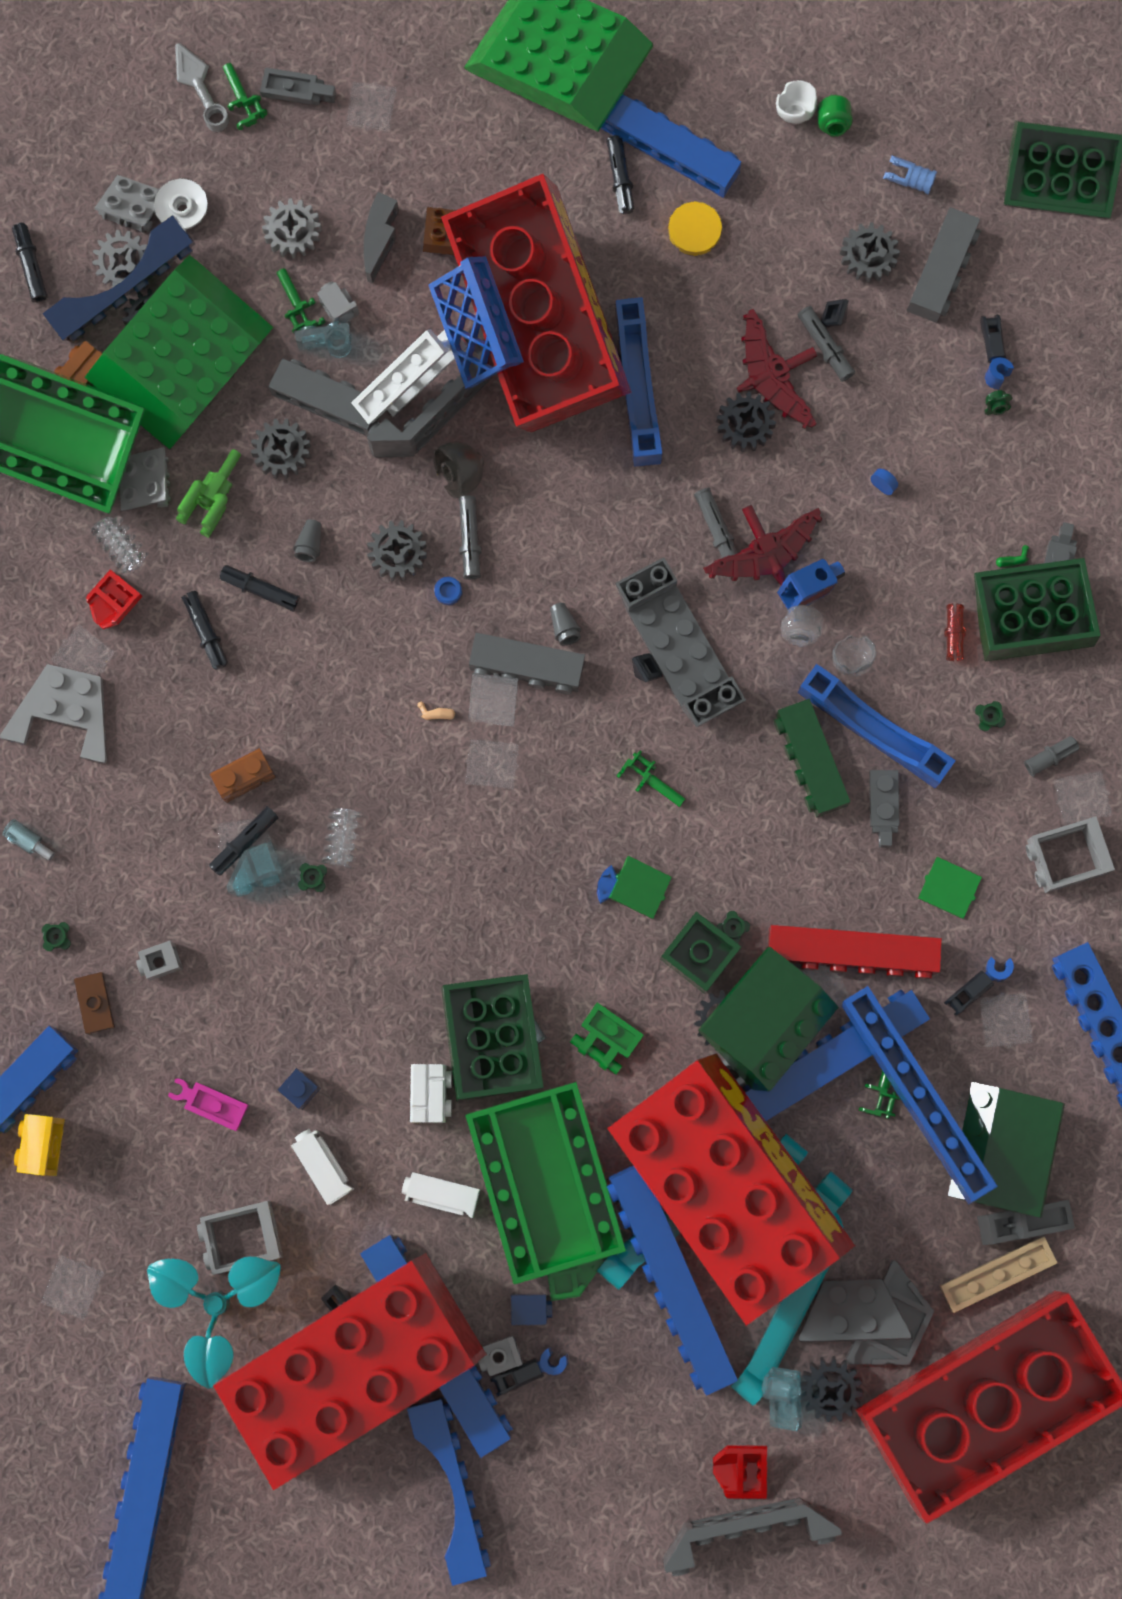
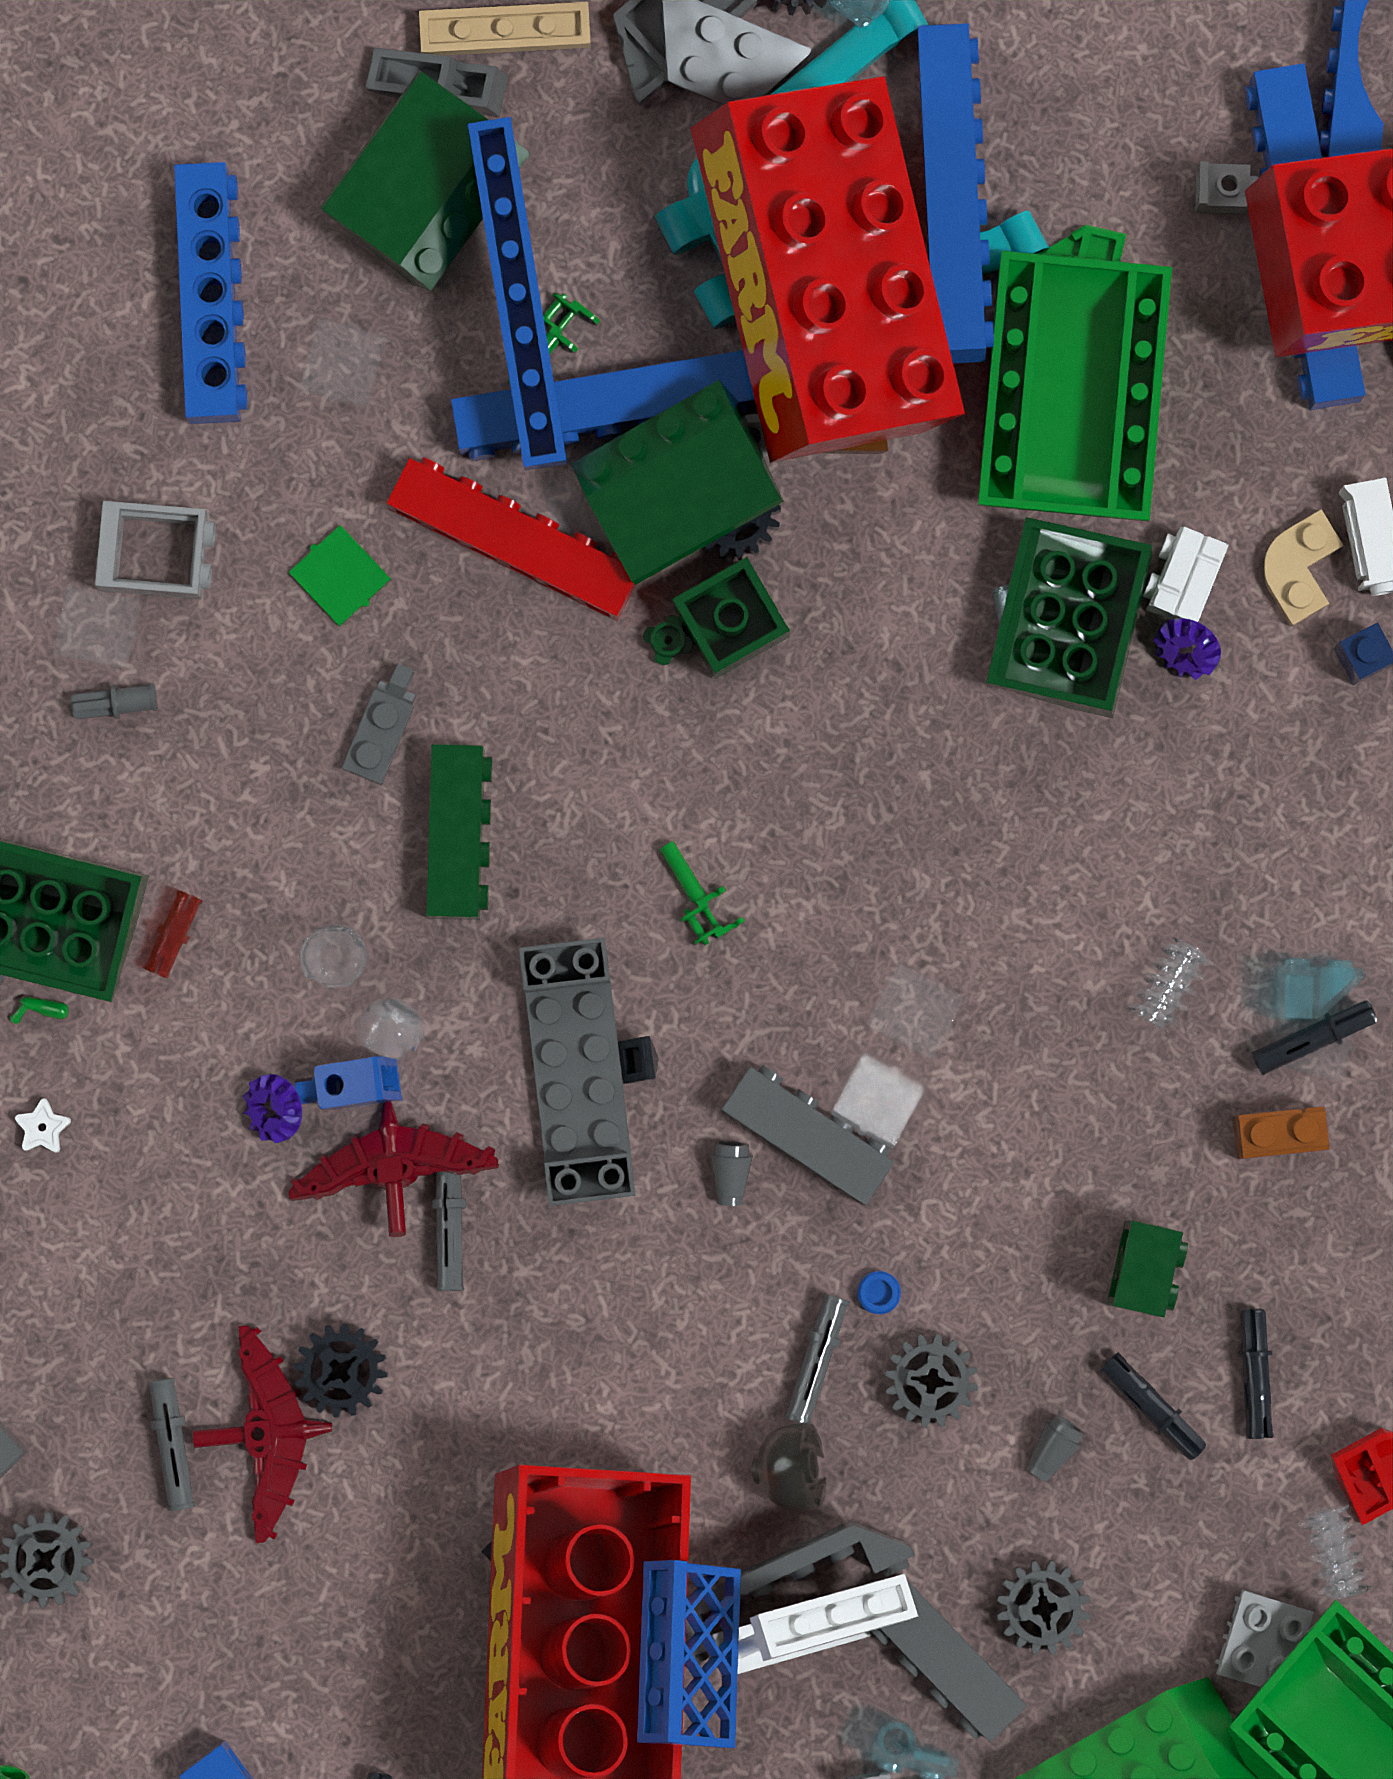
camera: 160 degrees left, 5 degrees up
(210, 495) = (1173, 1576): bright green plant -> none
(294, 660) = (1147, 1269): none -> dark green brick
(308, 870) = (1247, 945): dark green plate -> none
(368, 1128) = (1288, 563): none -> tan plate
(420, 1052) = (1183, 634): none -> dark purple gear
(438, 713) = (966, 1115): light nougat piece -> none
(441, 1194) = (1222, 433): white window -> none
(529, 1372) = (1189, 152): black piece -> none
(530, 1309) = (1159, 232): dark blue brick -> none
(606, 884) = (818, 769): blue tile -> none
(610, 1030) = (897, 562): green plate -> none
(636, 365) = (473, 1497): blue arch -> none
(640, 887) = (776, 748): green piece -> none
(695, 228) = (289, 1707): yellow tile -> none
(835, 313) = (138, 1485): black slope -> none
(844, 706) = (347, 839): blue arch -> none
(846, 557) = (283, 1100): none -> dark purple gear
(884, 481) = (177, 1197): blue tile -> none
(976, 497) = (53, 1122): none -> white plate
(979, 985) = (359, 422): black piece -> none
(993, 708) = (169, 783): dark green plate -> none

